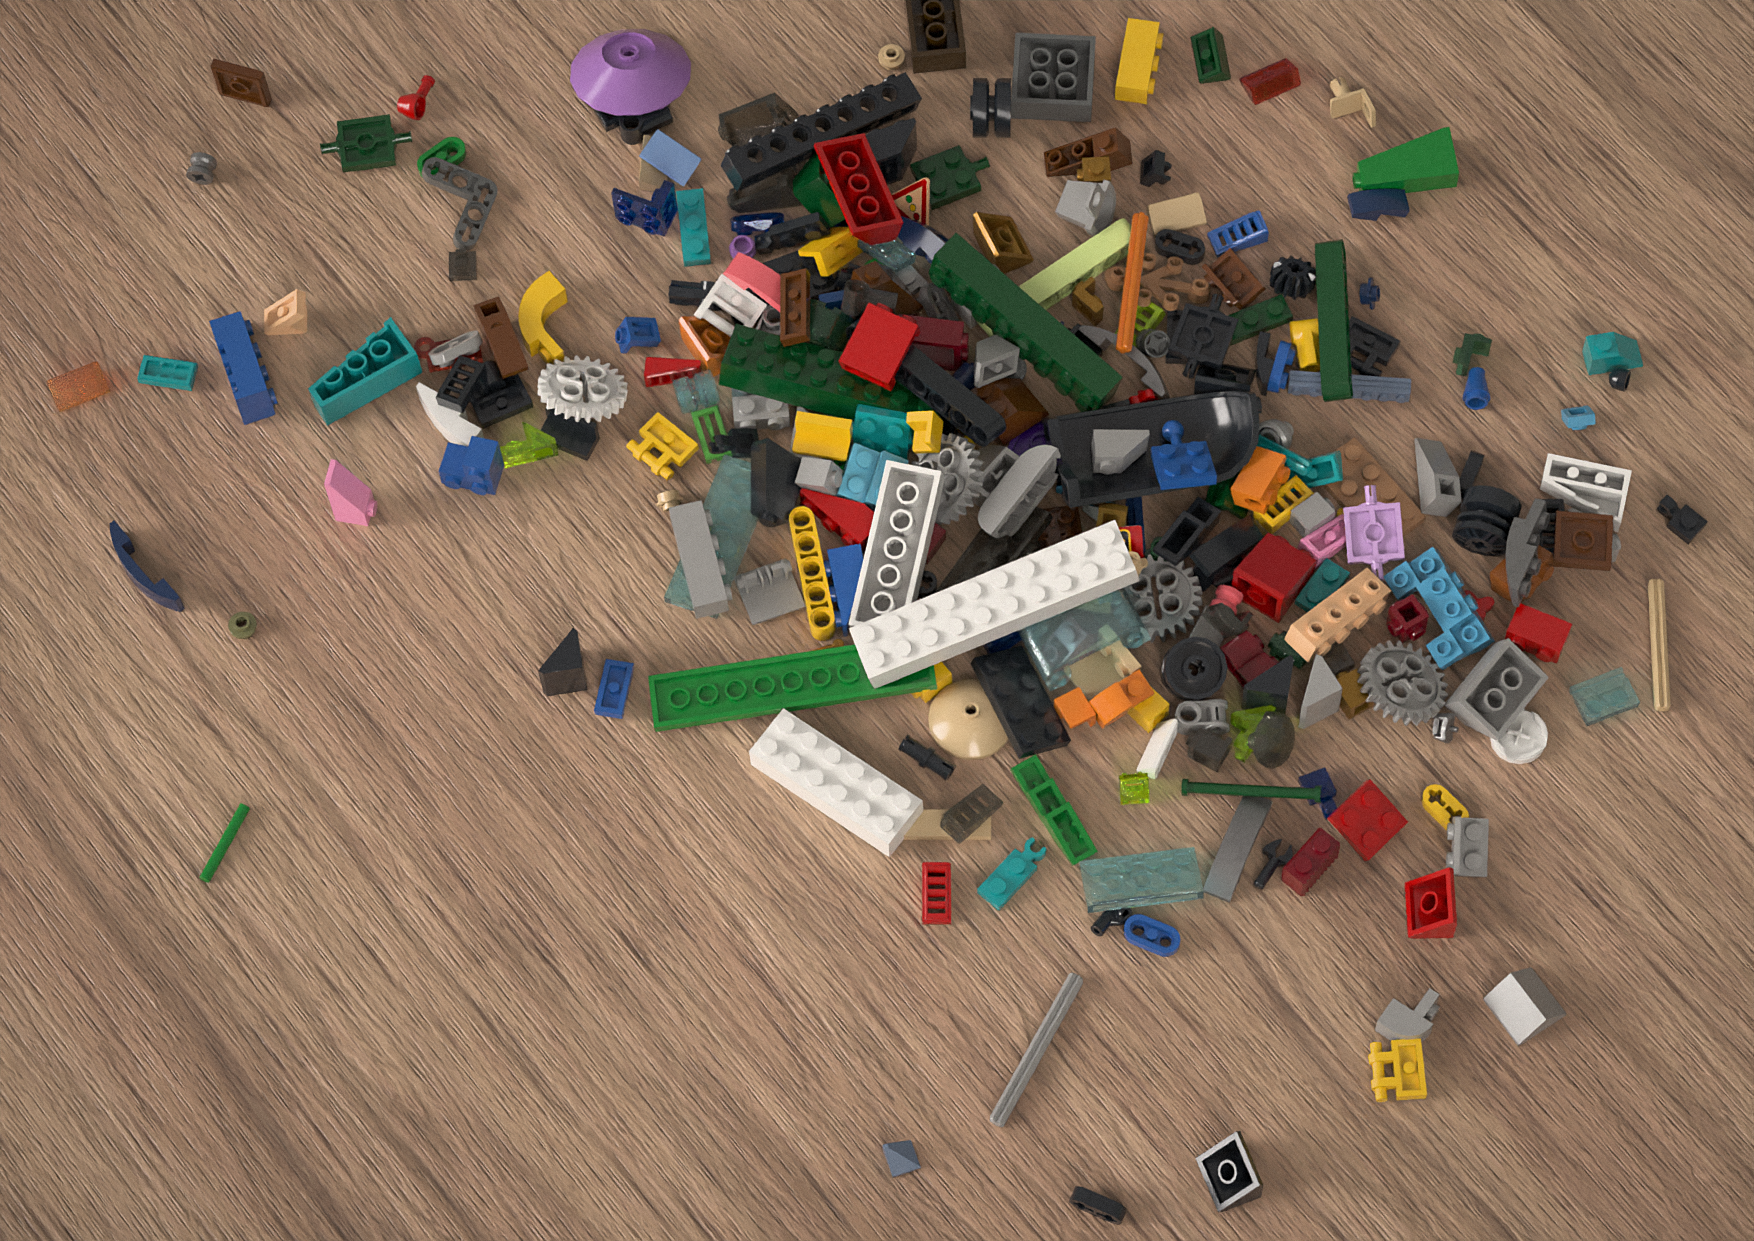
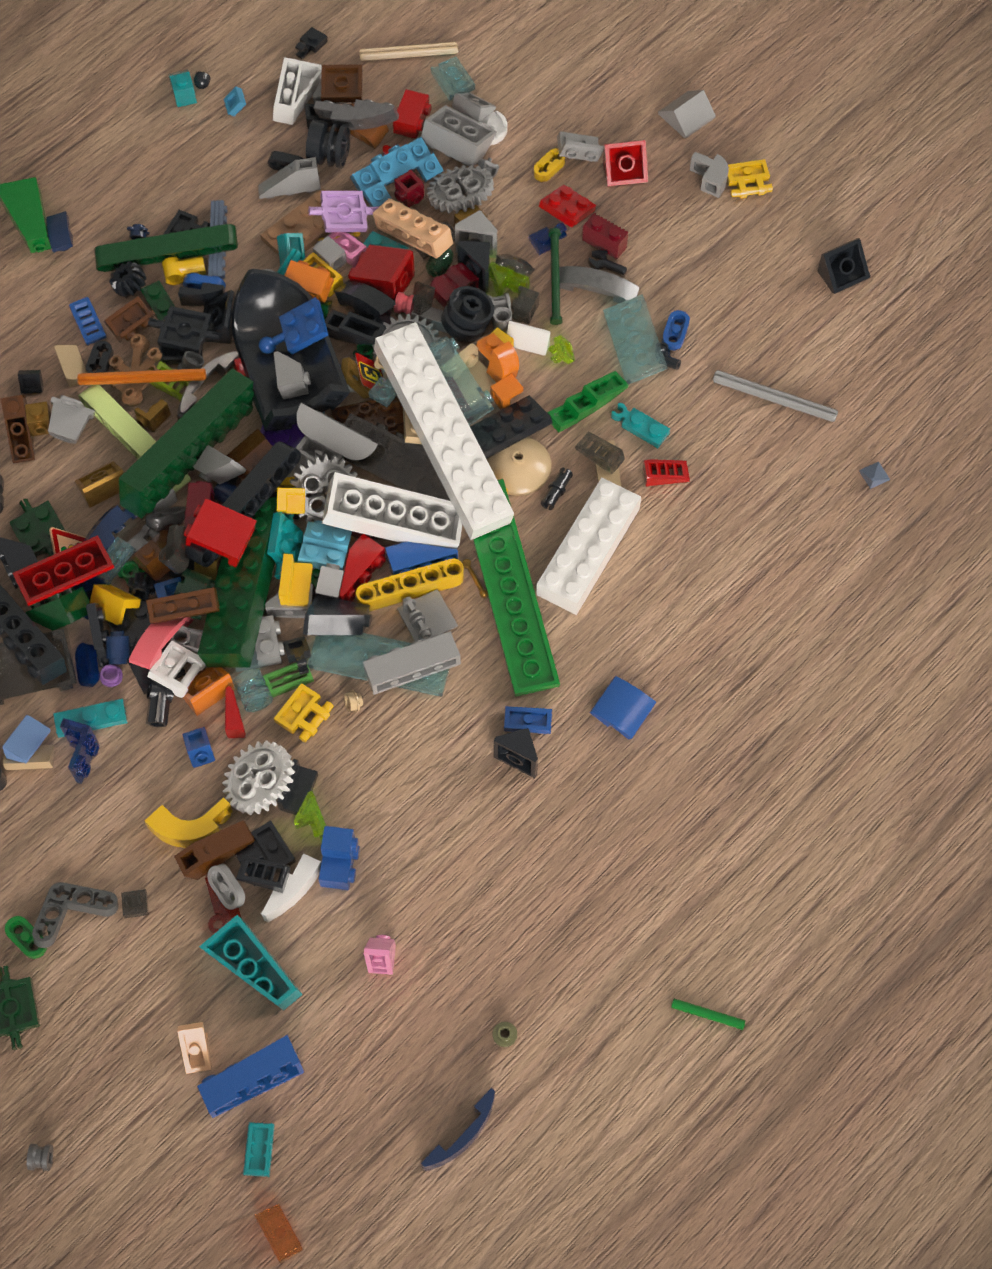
camera: 100 degrees left, 0 degrees up
(614, 798) = (623, 707): none -> blue slope
(767, 249) = (117, 648): none -> dark blue brick
(1098, 1205) = (885, 345): black beam -> none
(1471, 344) = (186, 169): clear green bracket -> none
(1476, 390) = (215, 163): blue cone -> none
(1552, 717) = (472, 106): none -> light grey slope

